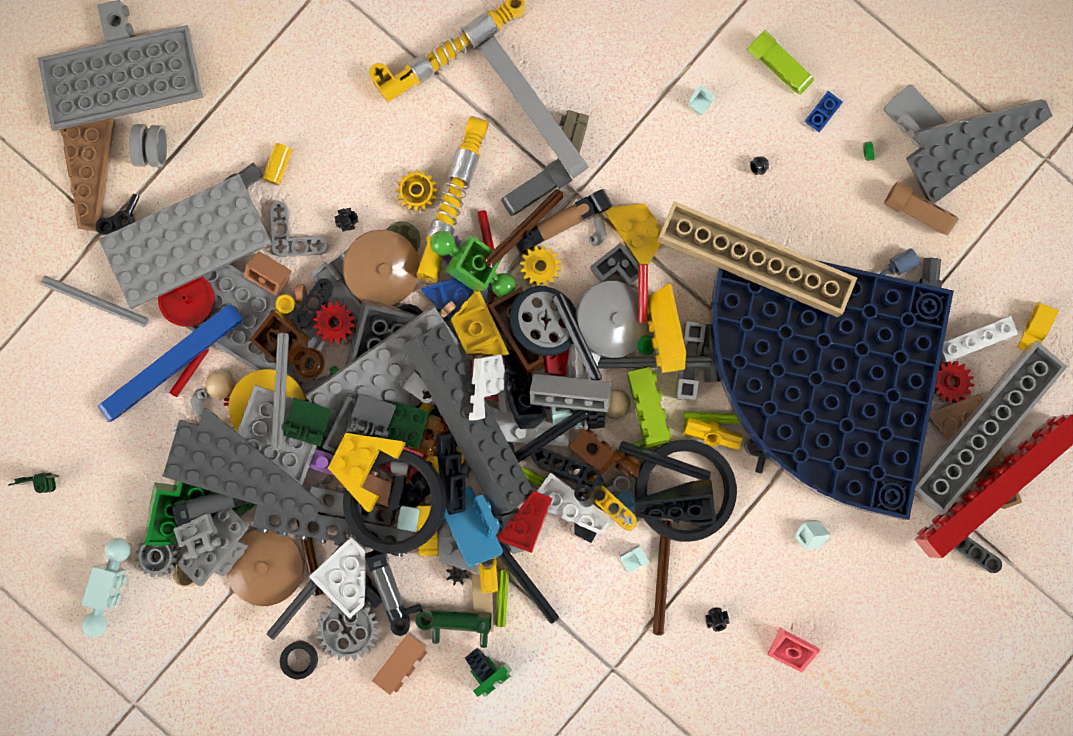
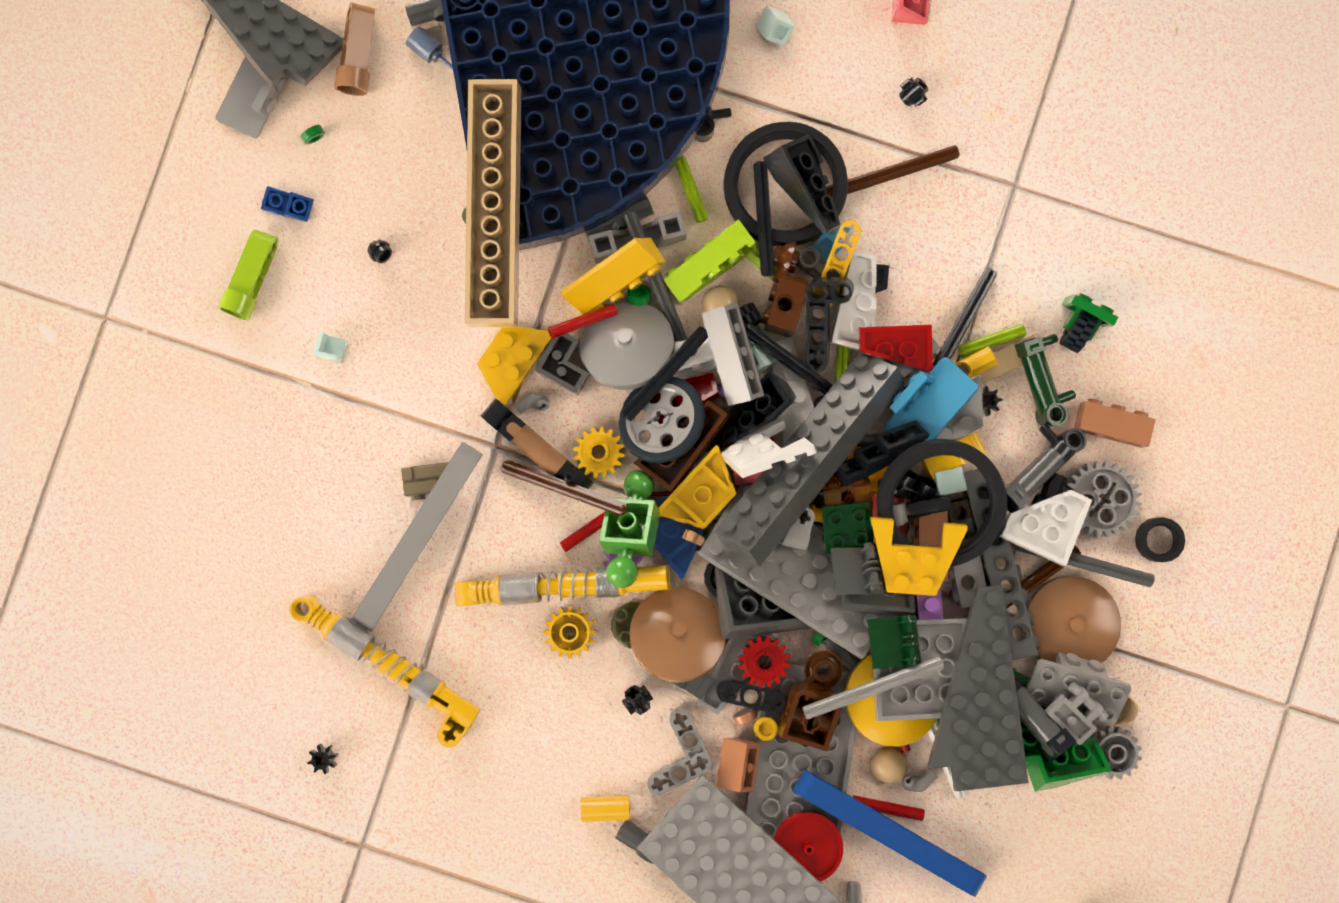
camera: 115 degrees left, 0 degrees up
(104, 587) = (1177, 796): light aqua brick -> none
(552, 177) = (489, 480): dark grey beam -> none
(634, 559) = (884, 211): light aqua panel -> none
(712, 433) = (709, 180): yellow piece -> none

